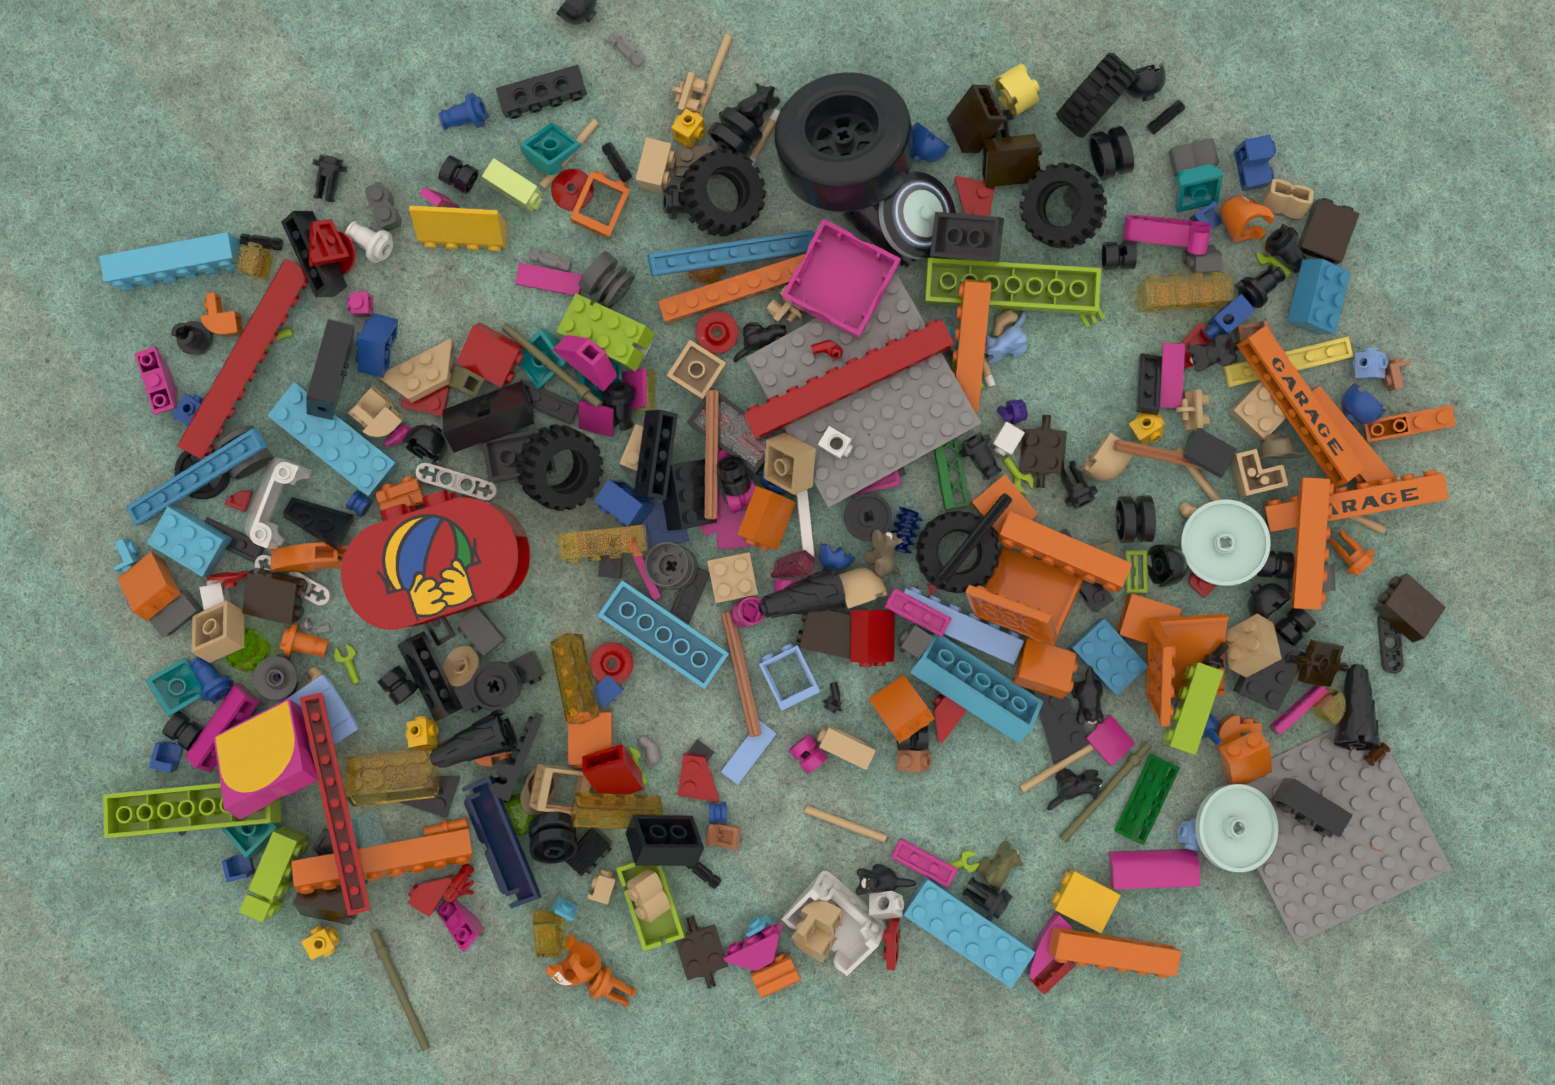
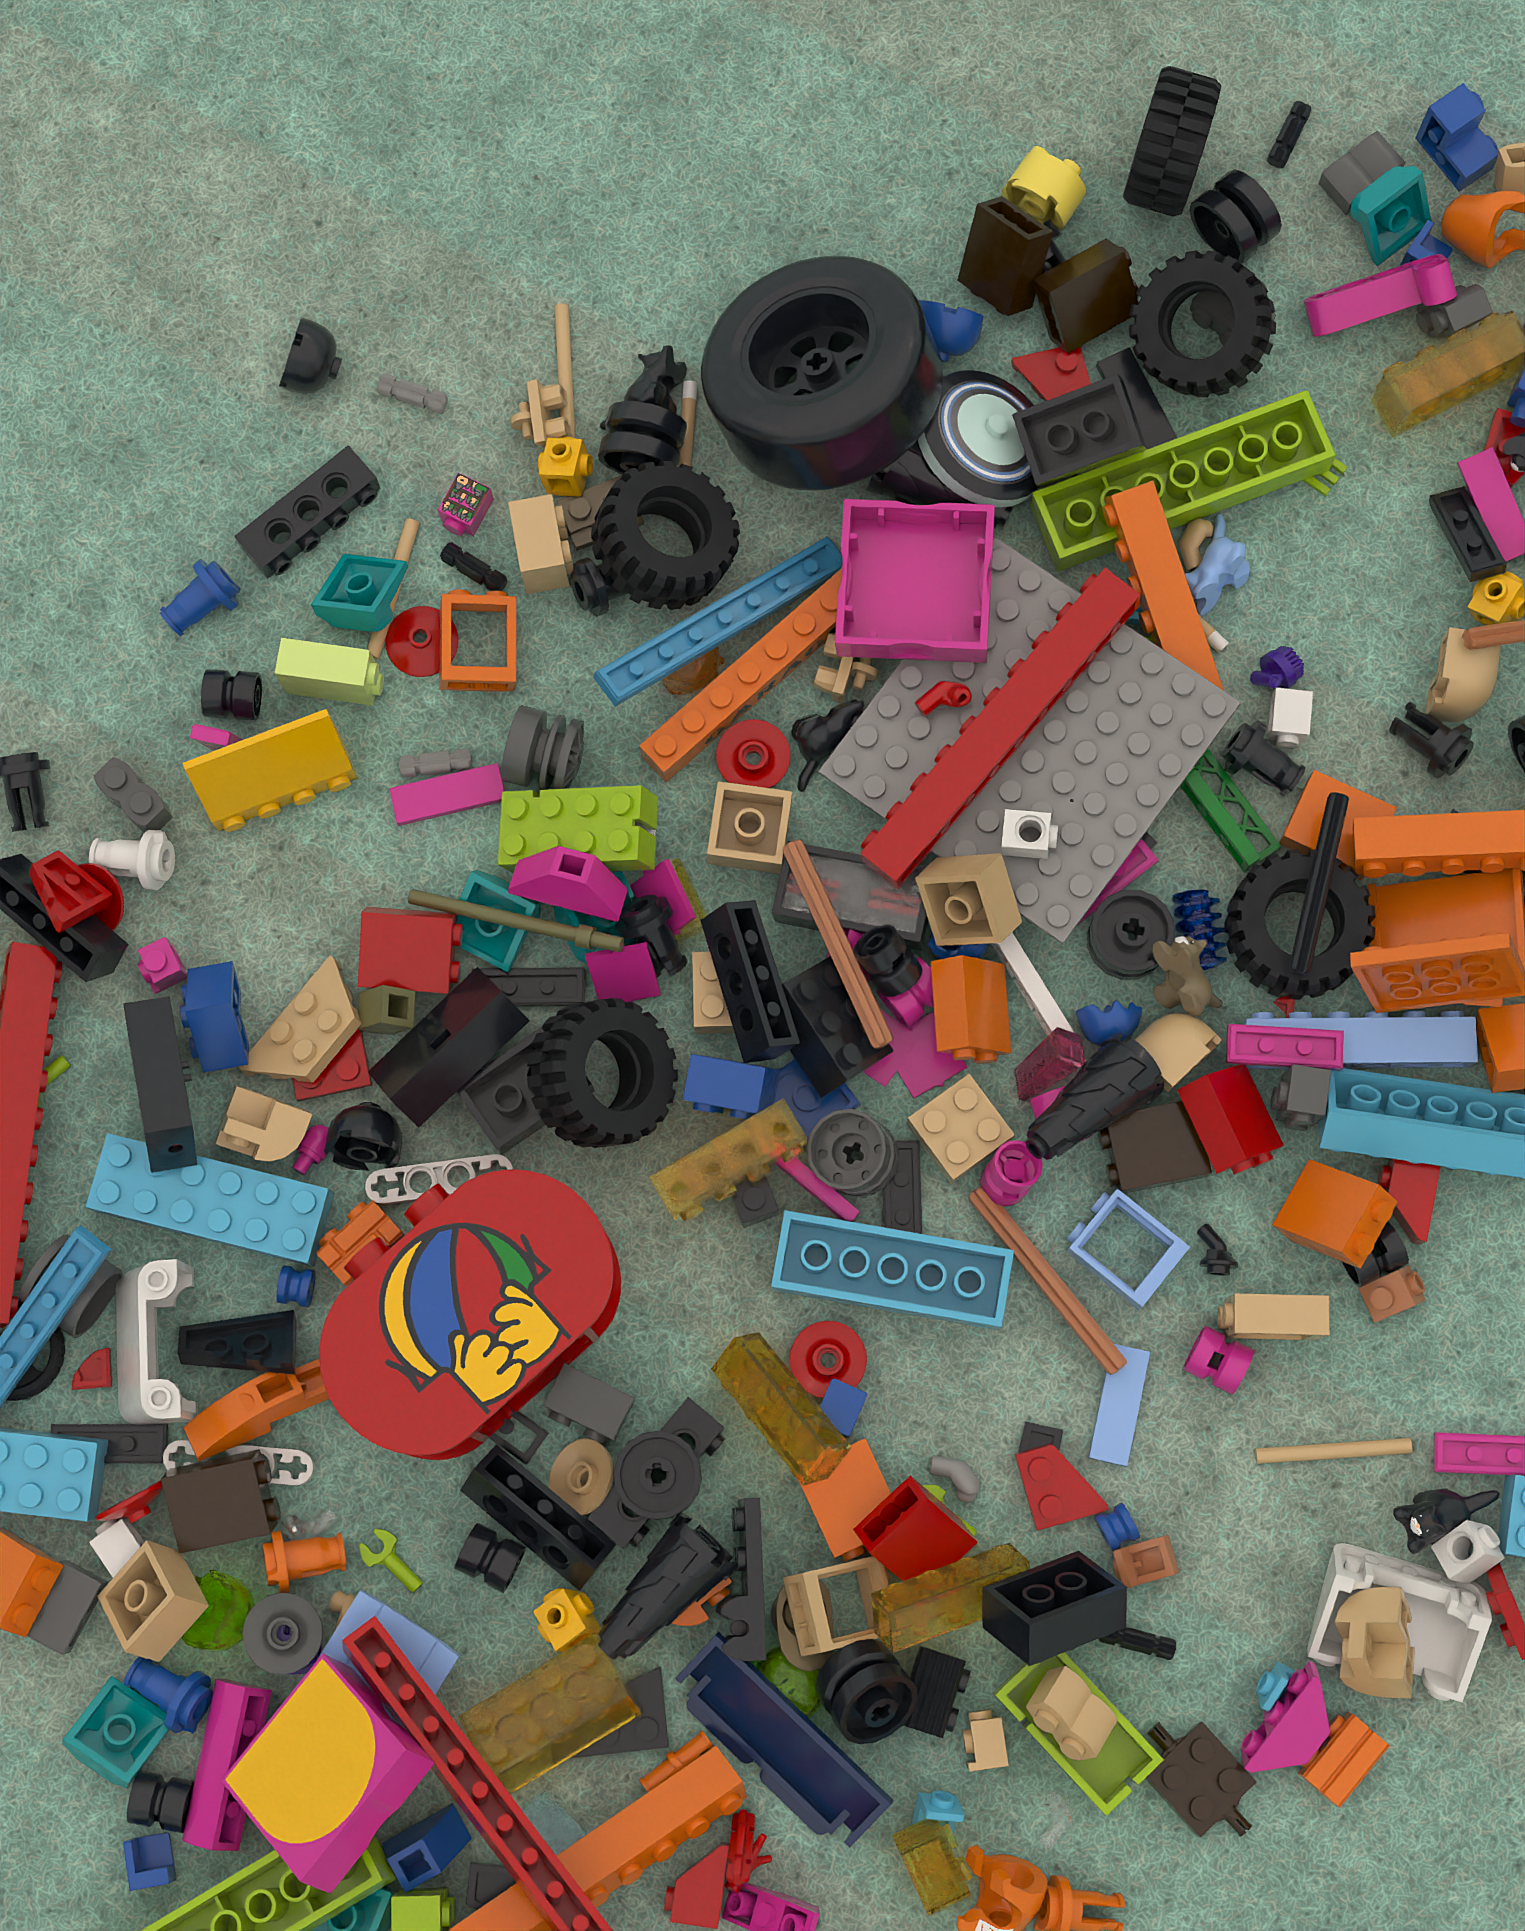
camera: 20 degrees left, 10 degrees down
(301, 813) = (426, 1847): none -> blue slope
(626, 126) = (465, 505): none -> brick
(1012, 231) = (1149, 413): none -> black tile
(1018, 475) = (1333, 766): lime bar -> none
(1043, 451) = (1355, 709): dark brown plate -> none
(1111, 255) = (1327, 362): black wheel -> none
(1147, 82) = (1239, 95): black cylinder -> none

